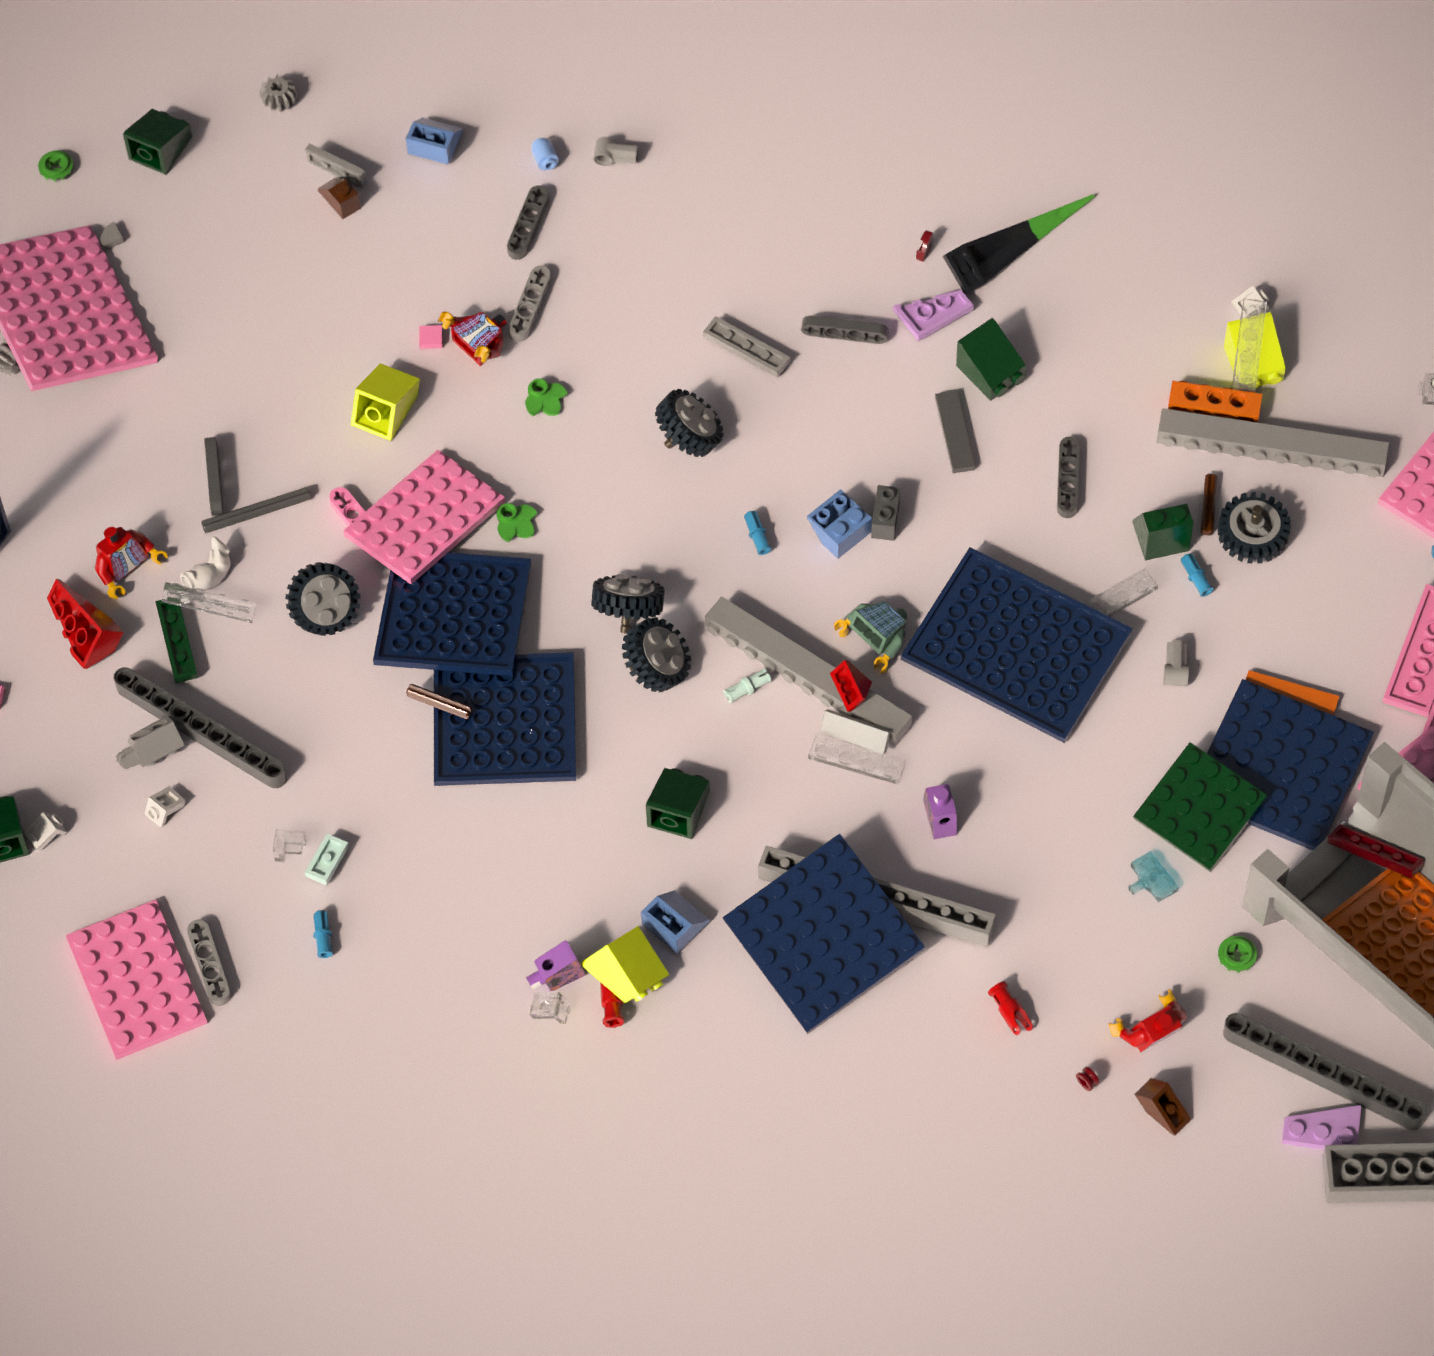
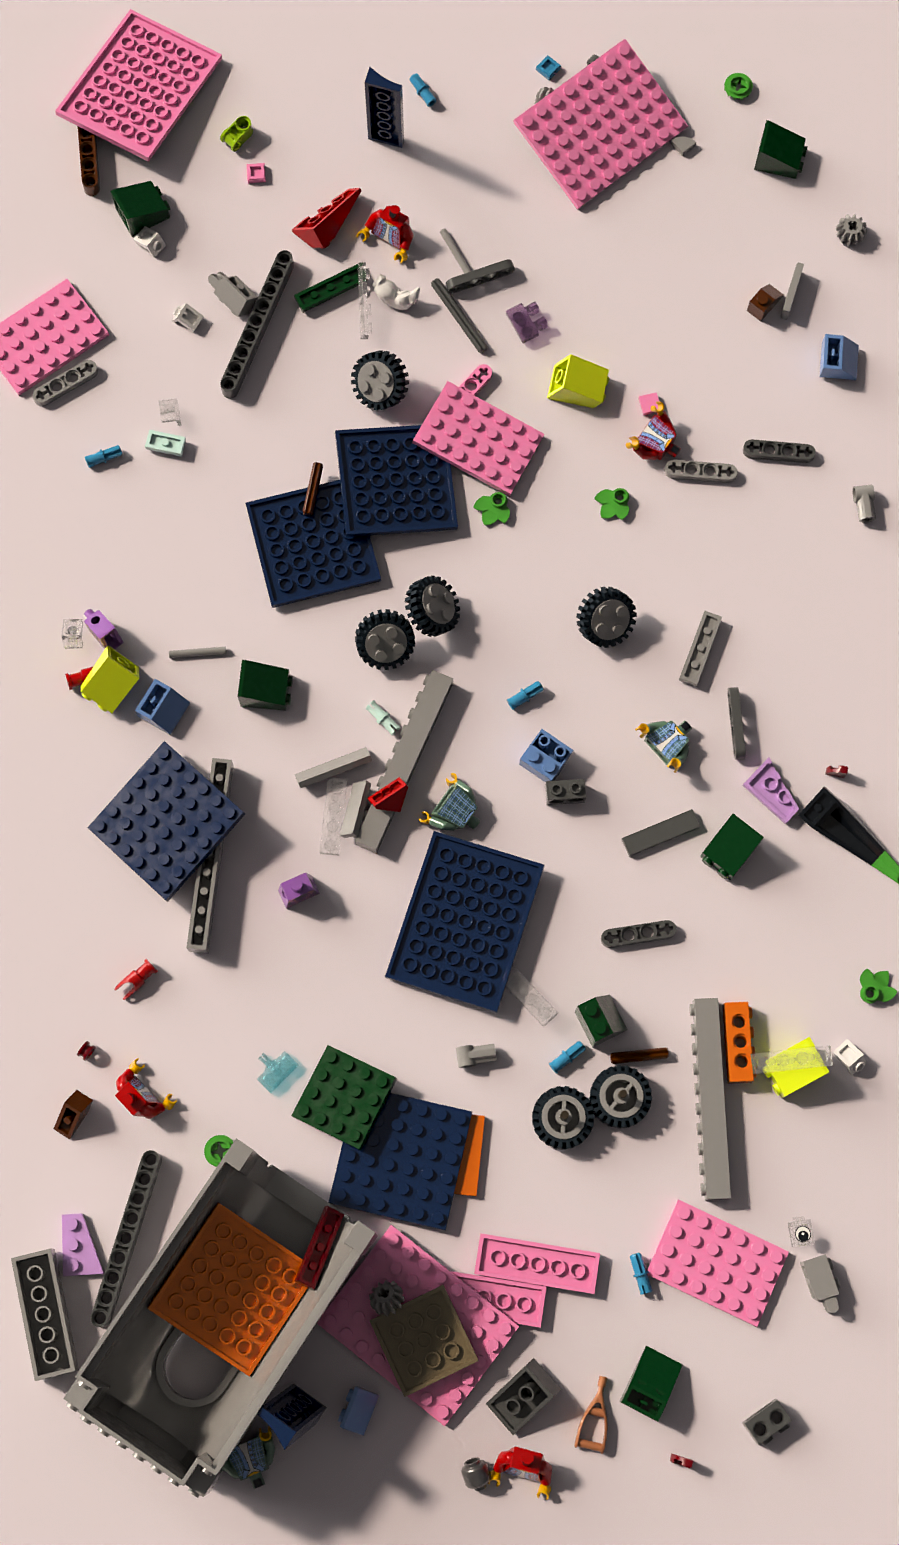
camera: 75 degrees right, 15 degrees up
(171, 498) = (465, 268): none -> light grey bar
(290, 443) = (522, 323): none -> clear purple plate
(544, 154) = (847, 447): light blue brick -> none
(611, 873) = (197, 652): none -> light grey bar
(796, 748) = (333, 767): none -> light grey tile
(852, 398) = (667, 741): none -> torso
(1175, 263) = (877, 985): none -> bright green plate
(1267, 589) = (563, 1117): none -> wheel

